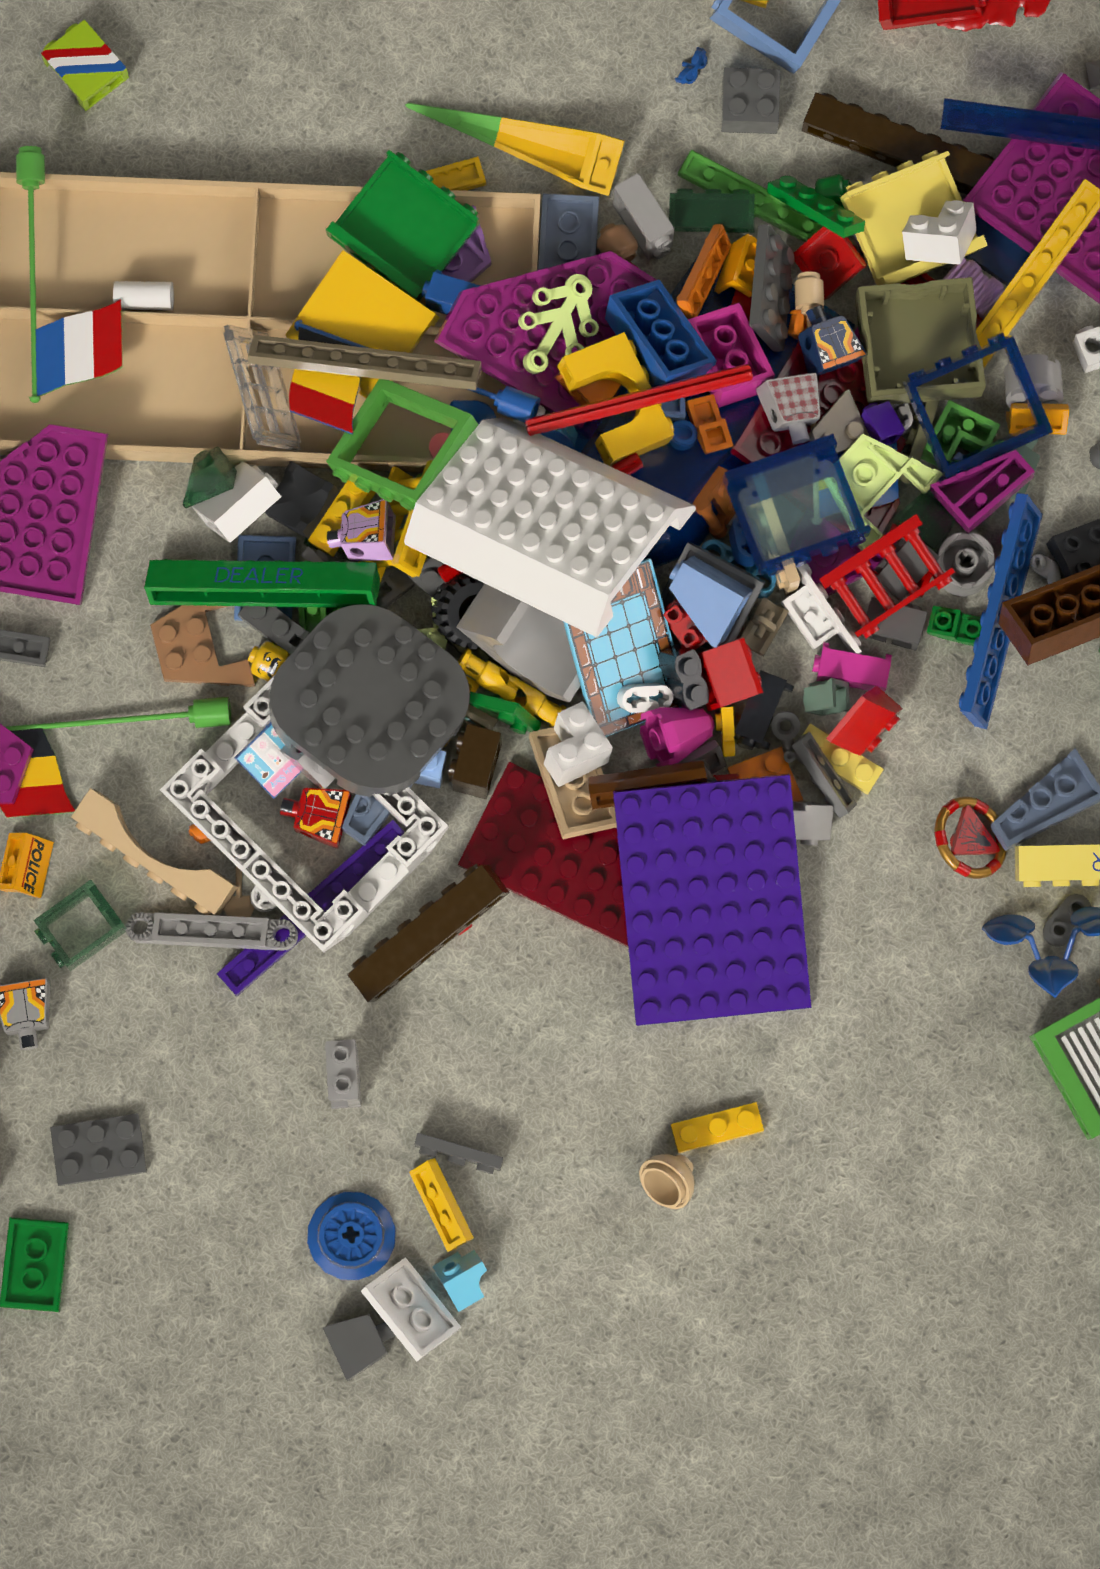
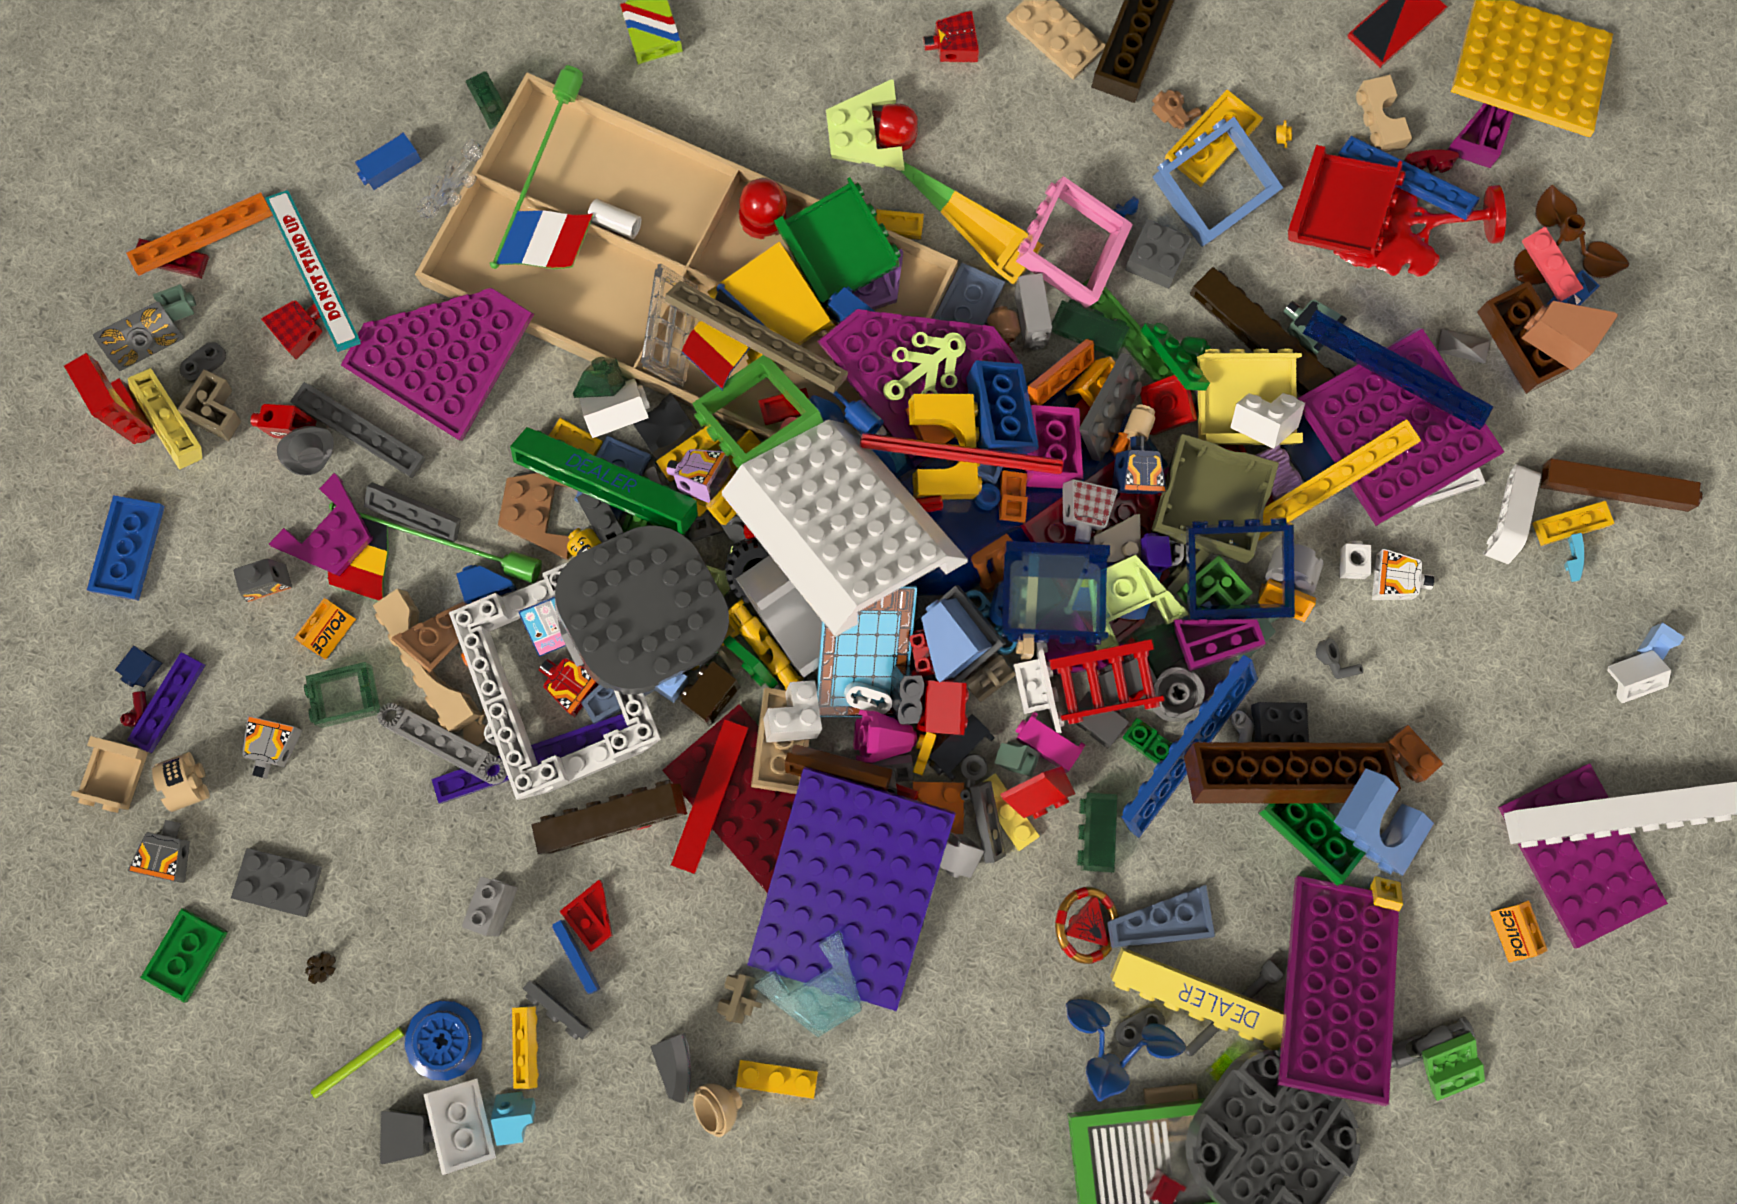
camera: 25 degrees right, 0 degrees up
(64, 703) = (412, 512): none -> dark grey plate
(152, 826) = (431, 640): none -> medium nougat wing
(177, 746) = (480, 582): none -> blue slope
(187, 1215) = (319, 967): none -> dark brown plant
(205, 549) = (575, 437): none -> yellow plate
(271, 1295) = (357, 1062): none -> lime bar
(302, 220) = (760, 205): none -> red tile
(362, 95) = (853, 129): none -> yellowish green wing
(401, 75) = (895, 126): none -> red piece
(417, 431) = (778, 408): none -> red tile
(448, 1045) = (589, 916): none -> red wing
(454, 1091) = (576, 957): none -> blue tile
(522, 868) = (709, 797): none -> red tile
(607, 1153) = (674, 1066): none -> dark grey slope
(648, 1062) = (742, 1000): none -> dark tan hips
(667, 81) = (1095, 211): none -> bright pink window
(731, 1026) = (822, 1000): none -> clear light blue wing
(933, 111) = (1302, 317): none -> sand green torso
(942, 740) = (1097, 833): none -> clear green brick

